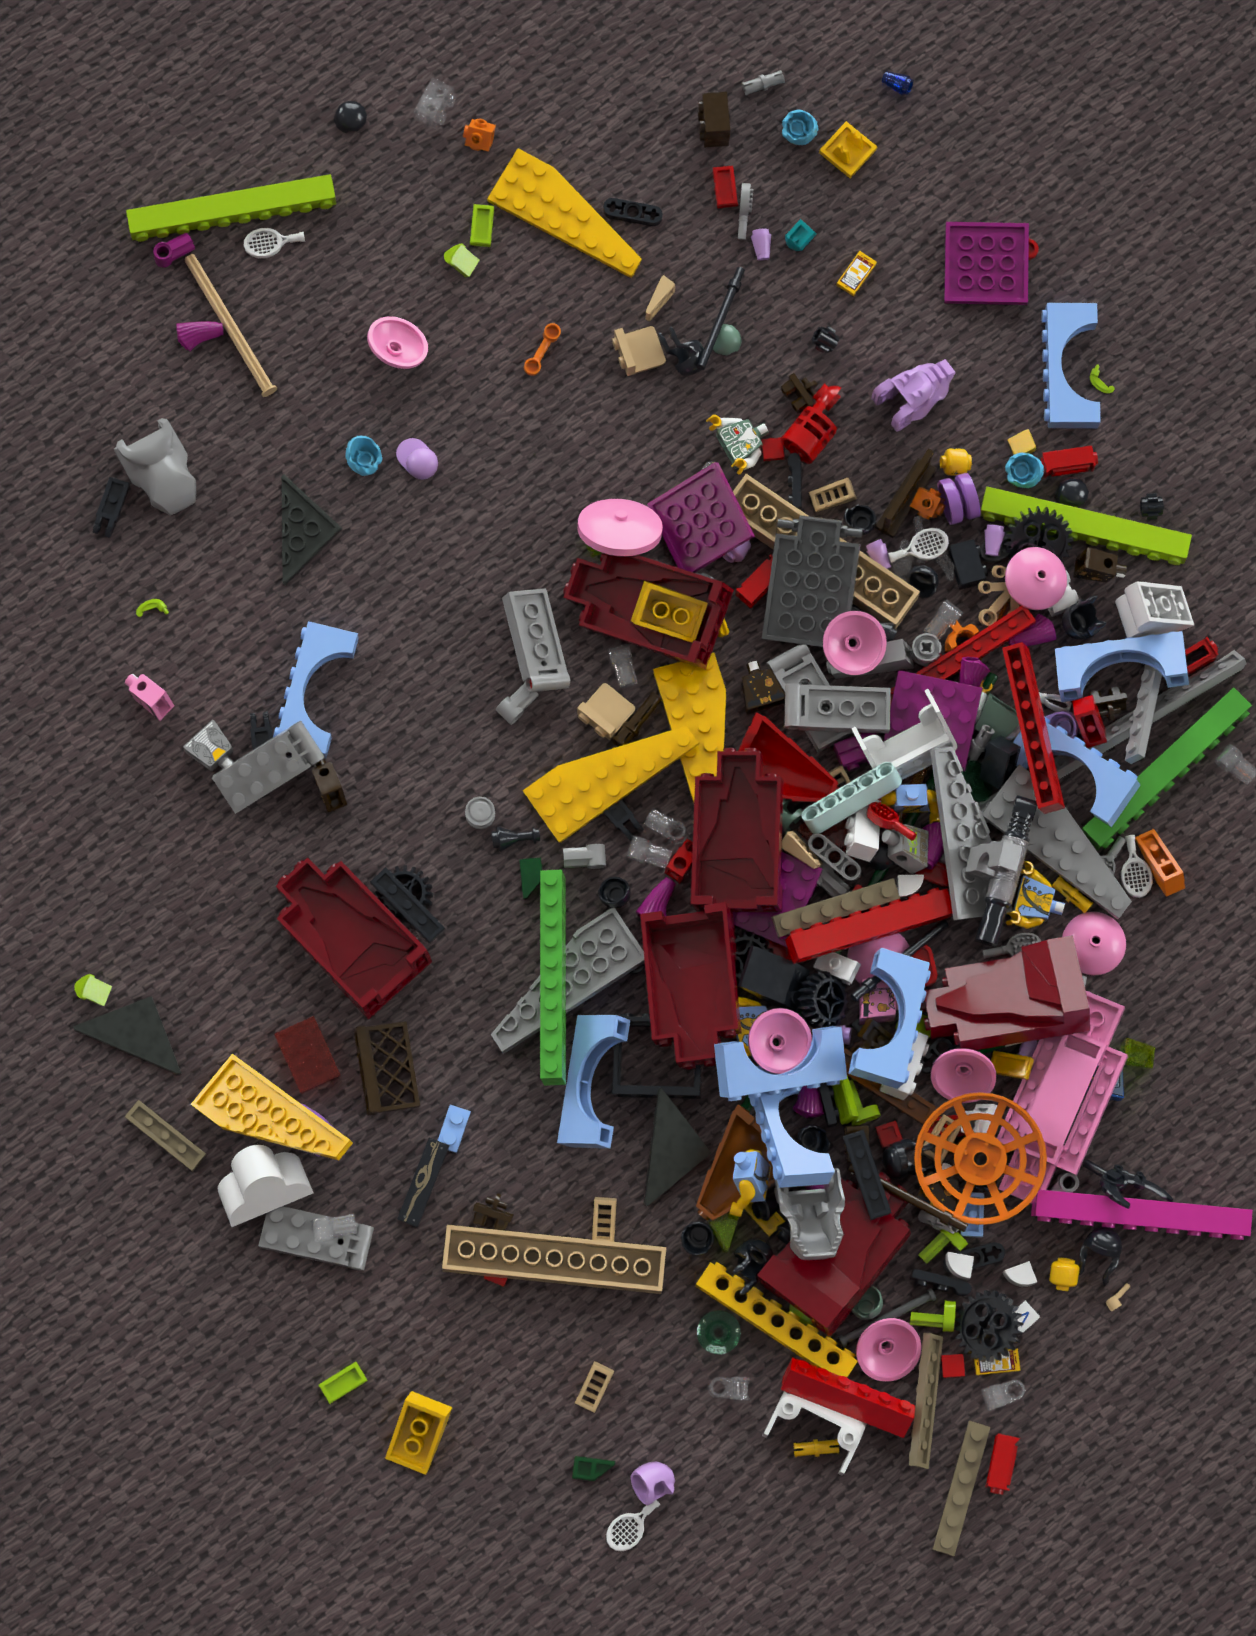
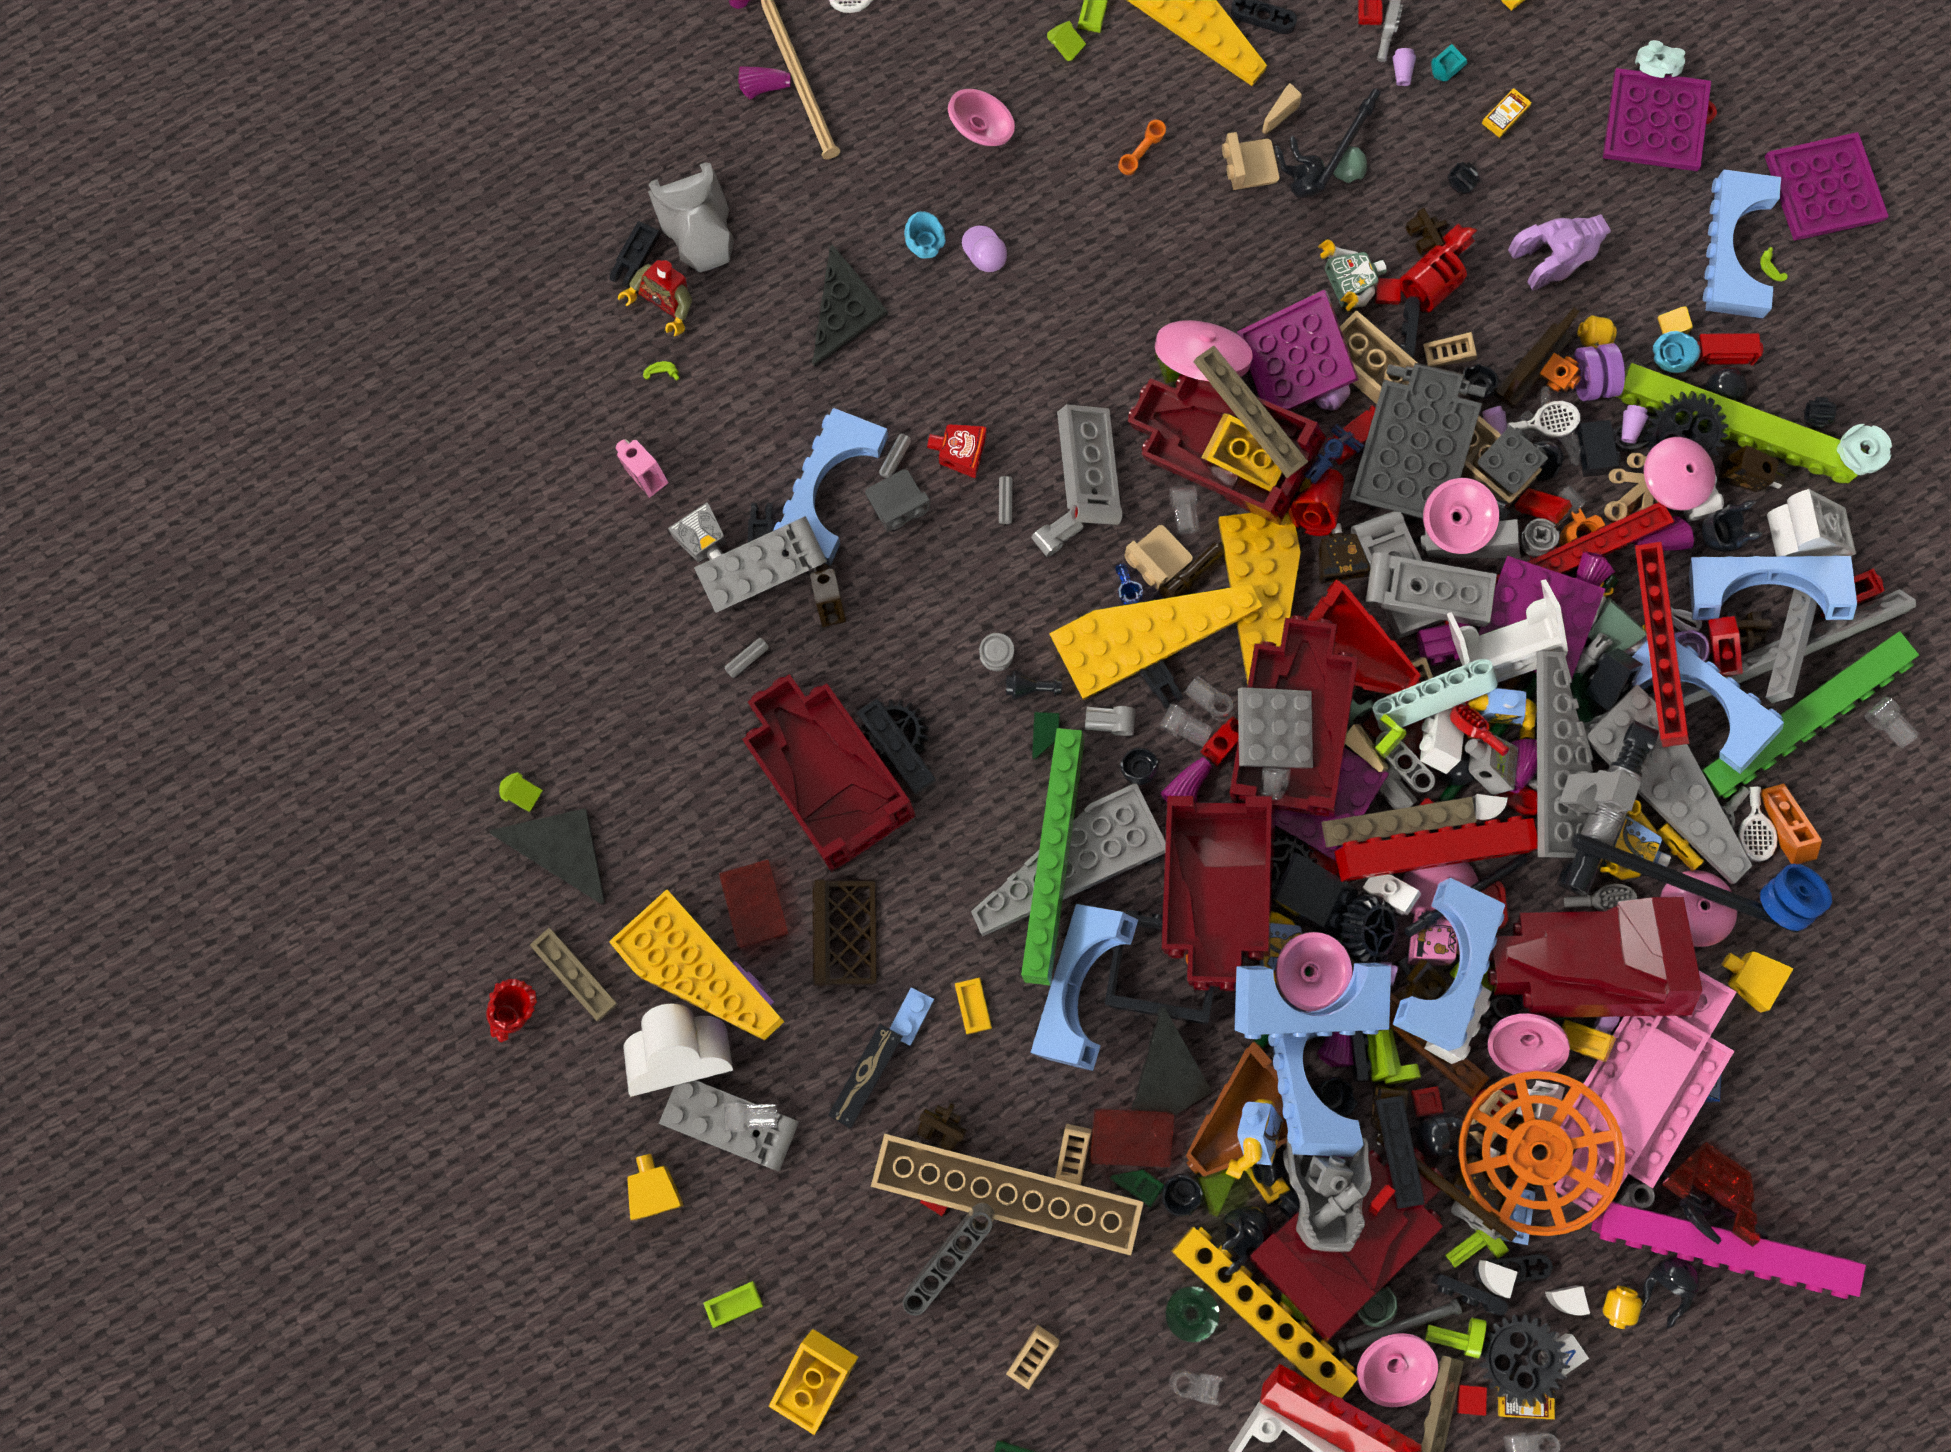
camera: 15 degrees right, 0 degrees up
(118, 1170) = (509, 1007): none -> red hair
(144, 536) = (664, 289): none -> torso
(261, 1301) = (651, 1190): none -> yellow torso
(267, 848) = (746, 657): none -> light grey axle
(367, 655) = (895, 455): none -> light grey axle
(375, 693) = (897, 500): none -> dark grey bracket
(422, 640) = (960, 447): none -> red torso
(468, 680) = (1005, 500): none -> light grey axle
(504, 1112) = (973, 1006): none -> yellow tile
(513, 1327) = (943, 1270): none -> dark grey beam
(584, 741) = (1128, 588): none -> clear blue bar
(650, 1199) = (1132, 1138): none -> clear red plate
(662, 1237) = (1140, 1185): none -> dark green tile
(665, 578) = (1250, 411): none -> dark tan plate
(721, 844) = (1275, 728): none -> light grey plate
(728, 889) = (1275, 782): none -> clear piece
(736, 646) = (1319, 505): none -> red cone
(741, 601) = (1333, 450): none -> dark blue pin
(811, 1201) = (1328, 1175): none -> light grey brick
(819, 1223) = (1337, 1206): none -> light grey pin
(820, 838) = (1392, 739): none -> lime tile
(856, 1214) = (1381, 1200): none -> red tile
(893, 586) = (1512, 459): none -> dark grey bracket
(926, 621) = (1543, 505): none -> red tile
(992, 206) = (1660, 59): none -> light aqua plate
(1077, 923) = (1672, 877): none -> black axle
(1113, 1303) = (1677, 1350): tan hand -> none
(1132, 1160) = (1722, 1180): none -> clear red wing
(1138, 303) = (1826, 186): none -> magenta plate
(1138, 1053) = (1744, 1048): clear neon green slope -> none
(1145, 993) = (1757, 978): none -> yellow torso
(1168, 922) = (1796, 897): none -> blue wheel
(1187, 546) = (1851, 452): none -> light aqua plate

